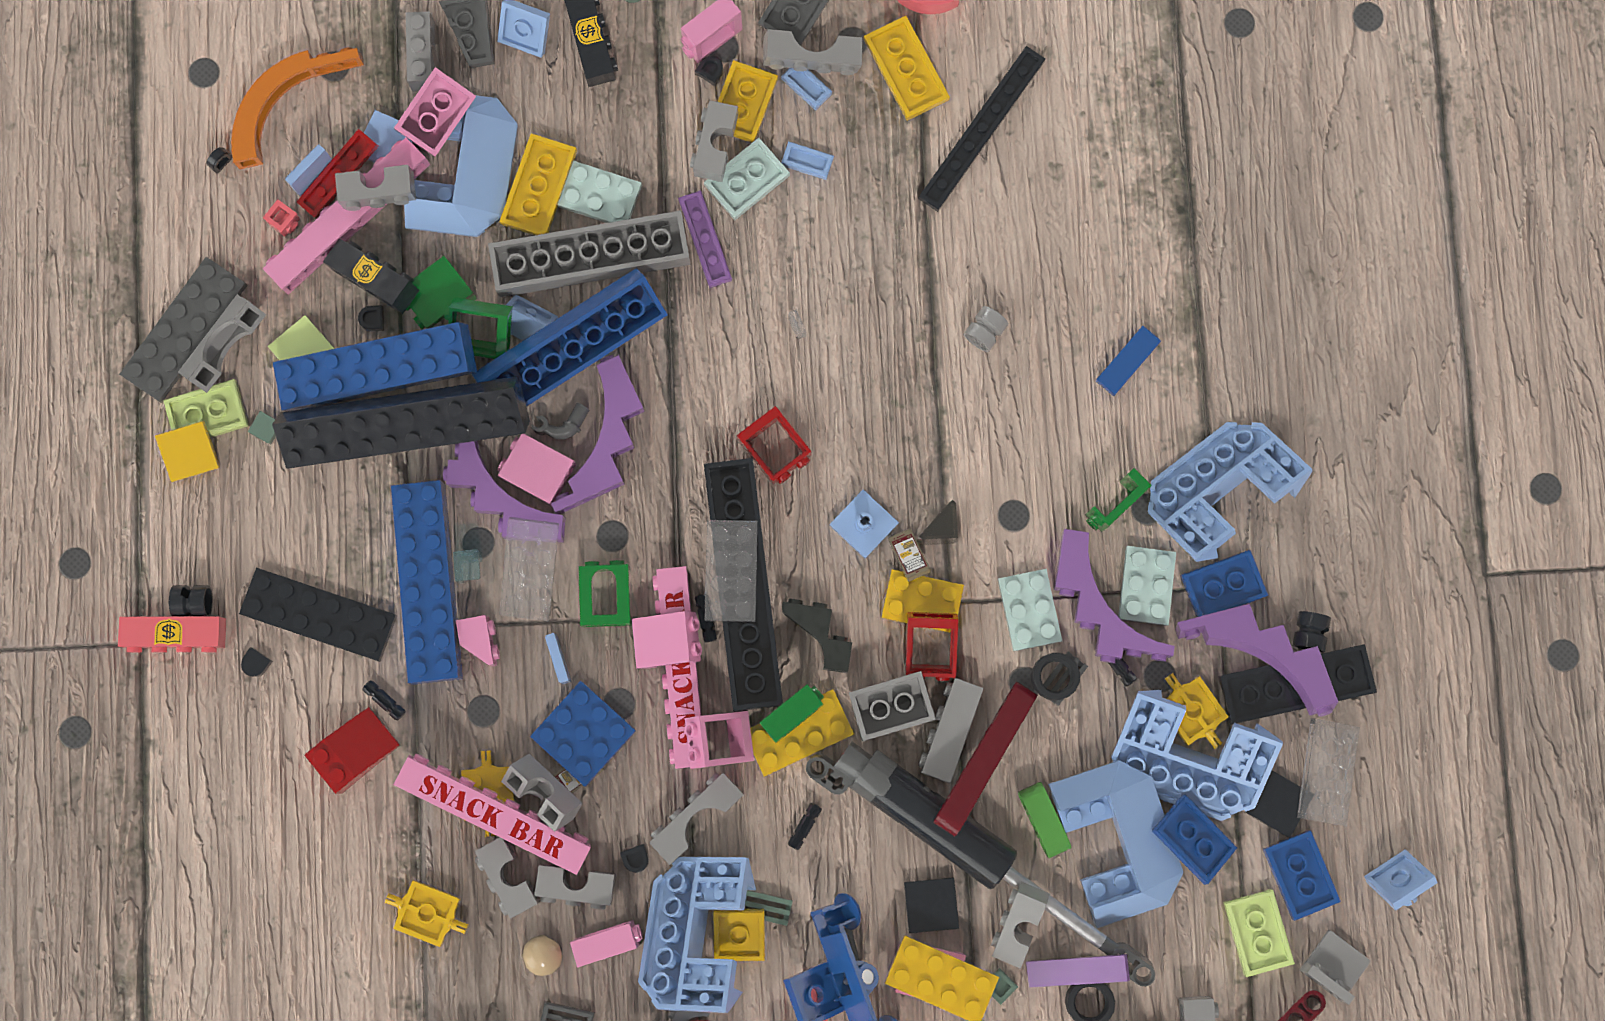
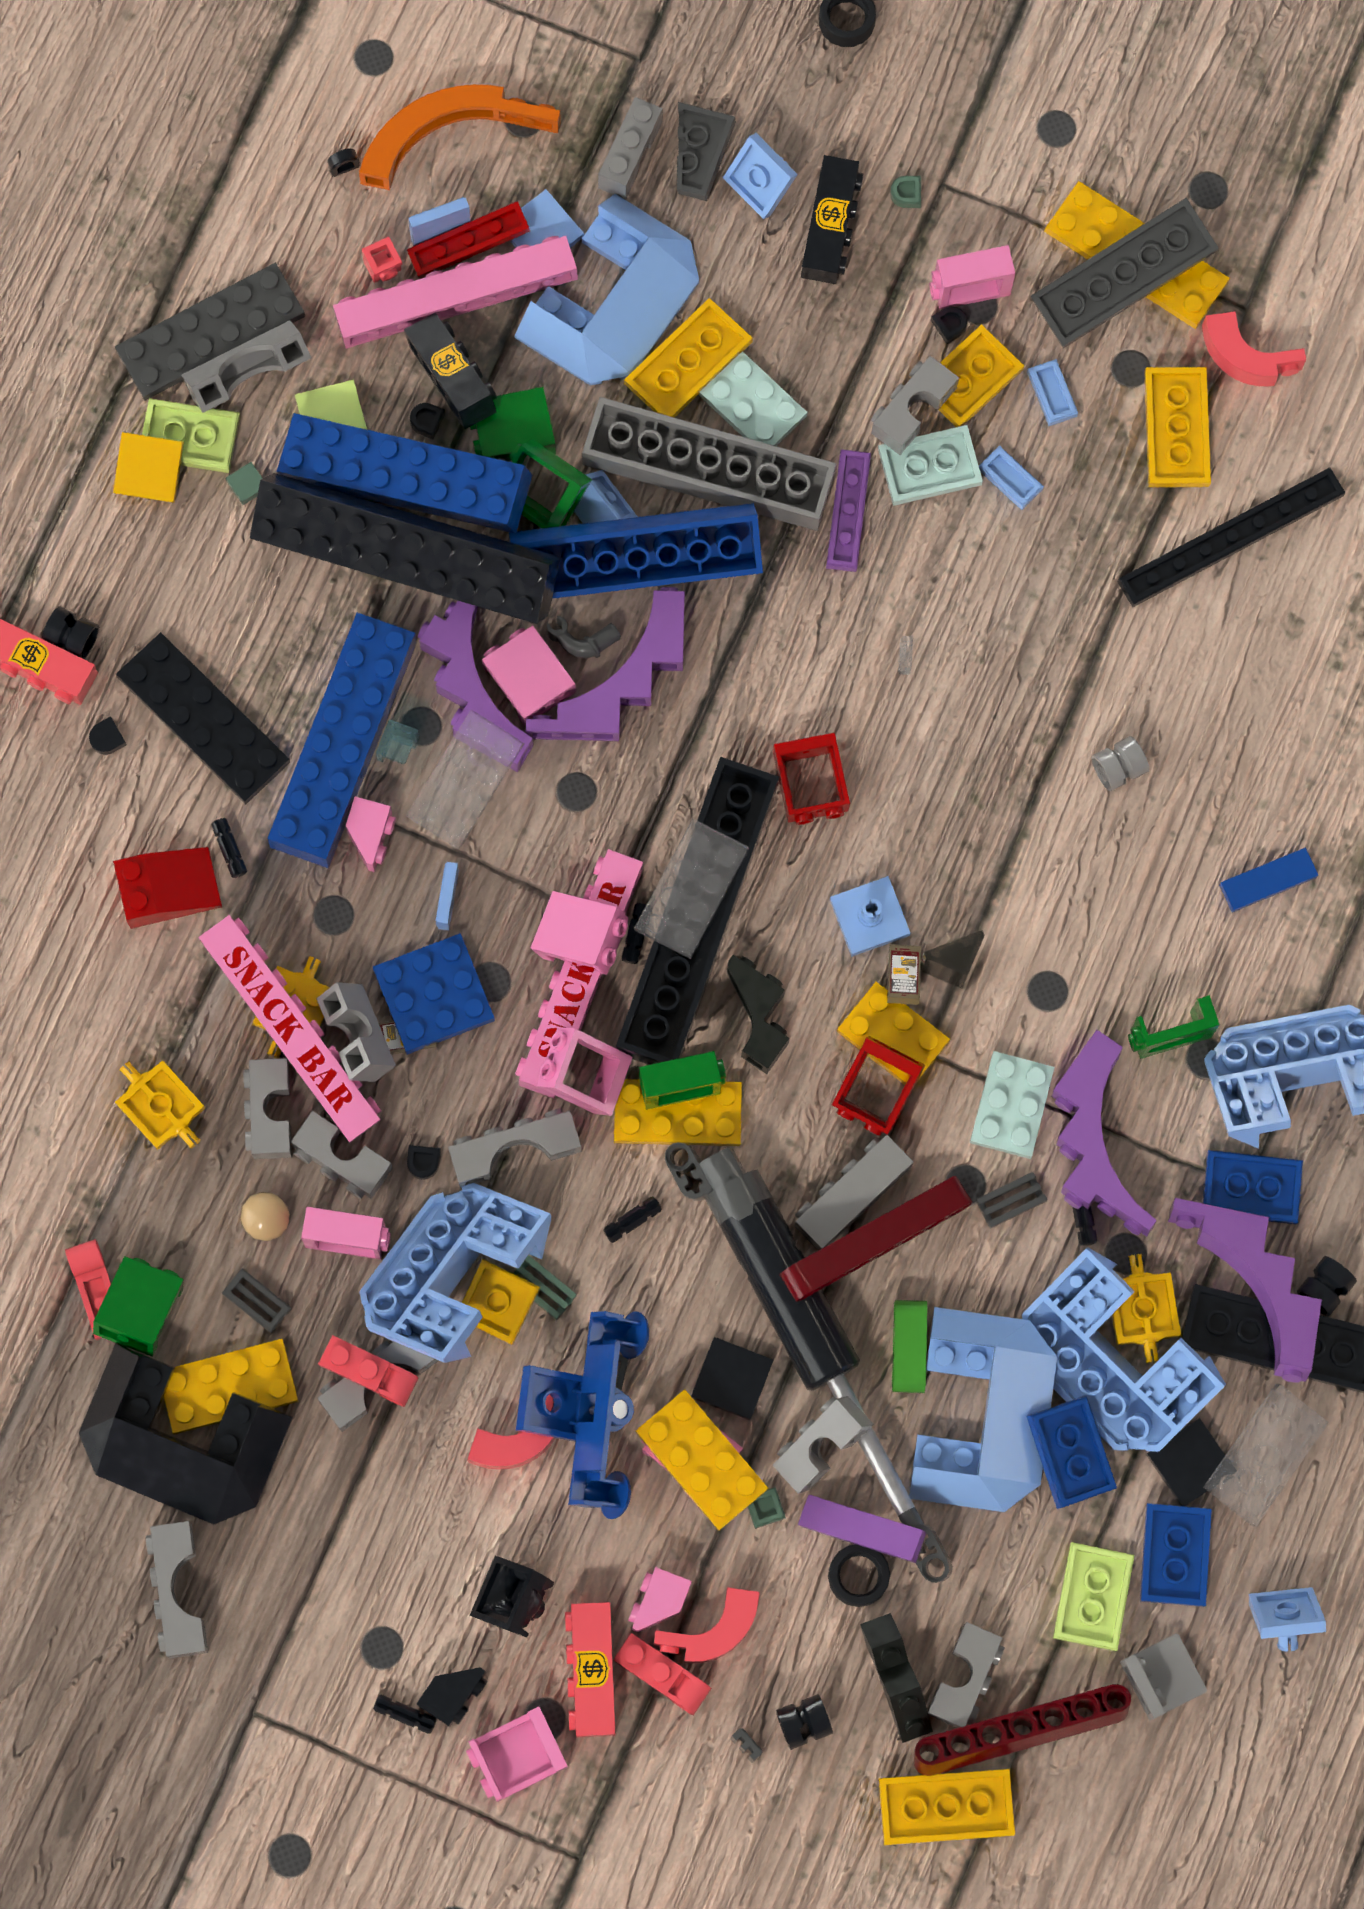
camera: 25 degrees right, 5 degrees down
(396, 188) = (527, 286): light grey arch -> none
(434, 112) = (612, 223): bright pink slope -> none
(621, 573) = (542, 885): green panel -> none
(783, 51) = (1043, 341): light grey arch -> none
(891, 706) = (798, 1131): light grey slope -> none
(1074, 676) = (1016, 1170): black tyre -> none
(1147, 585) = (1162, 1143): light aqua plate -> none

